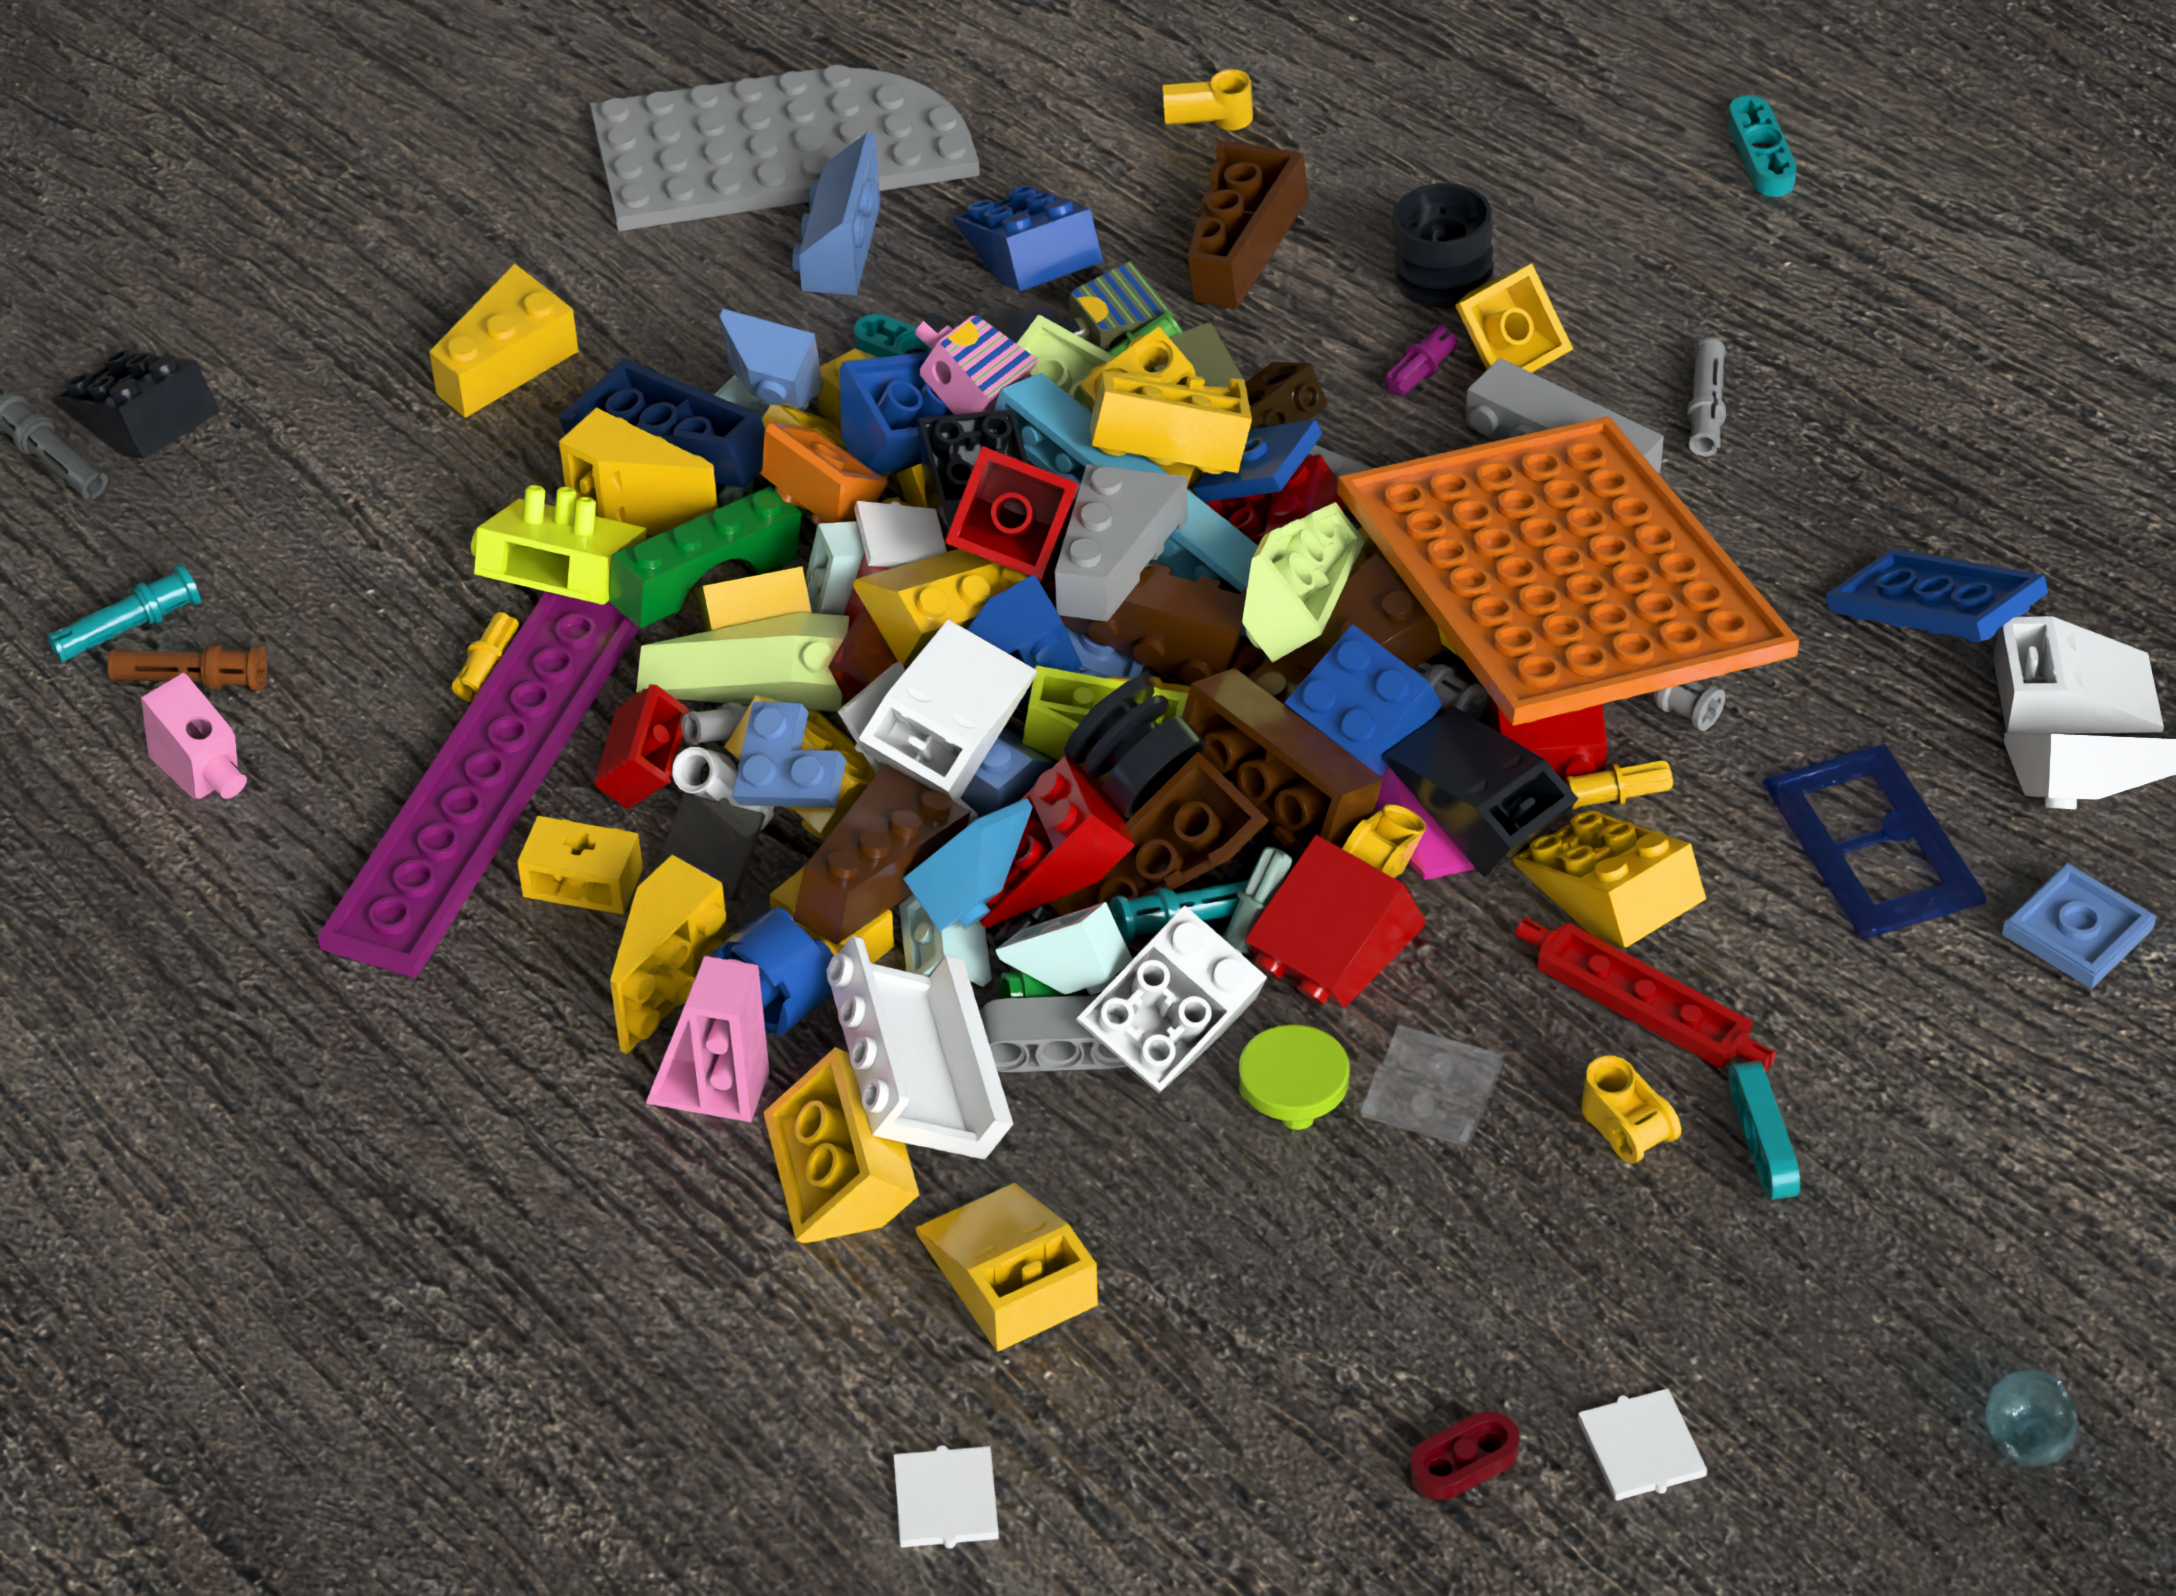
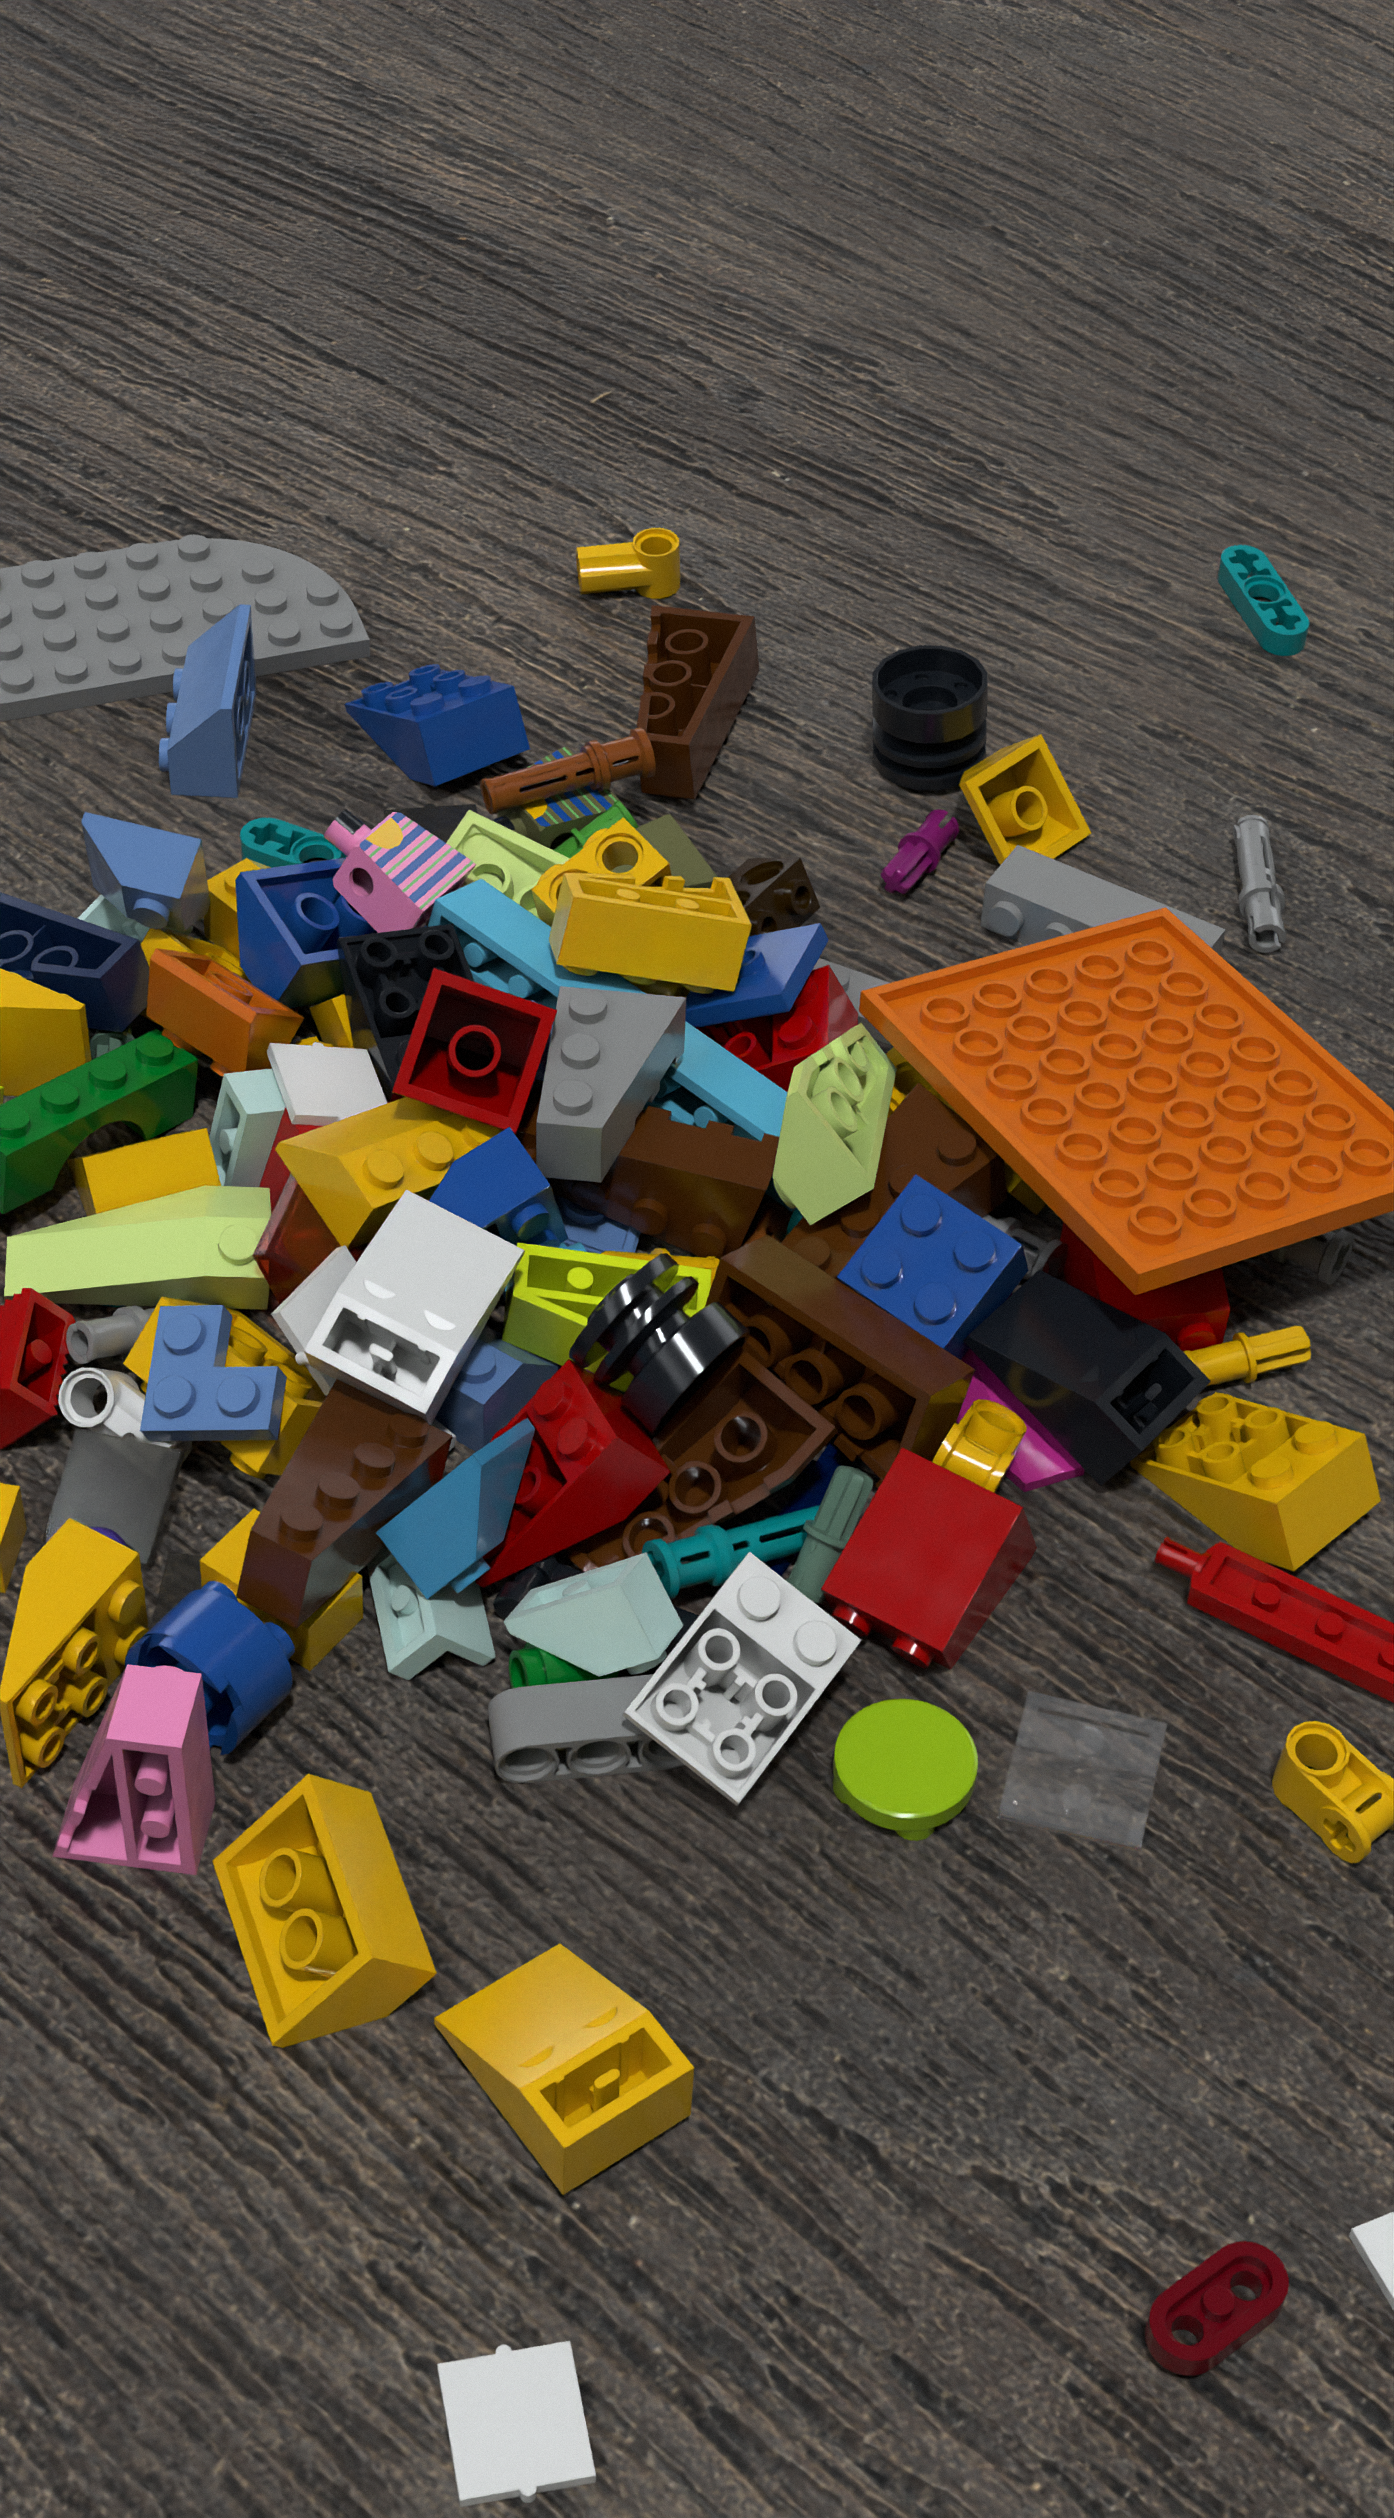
camera: 10 degrees left, 0 degrees up
(919, 1053) = (418, 1772): white panel -> none
(1149, 280) = (594, 767): none -> dark orange pin

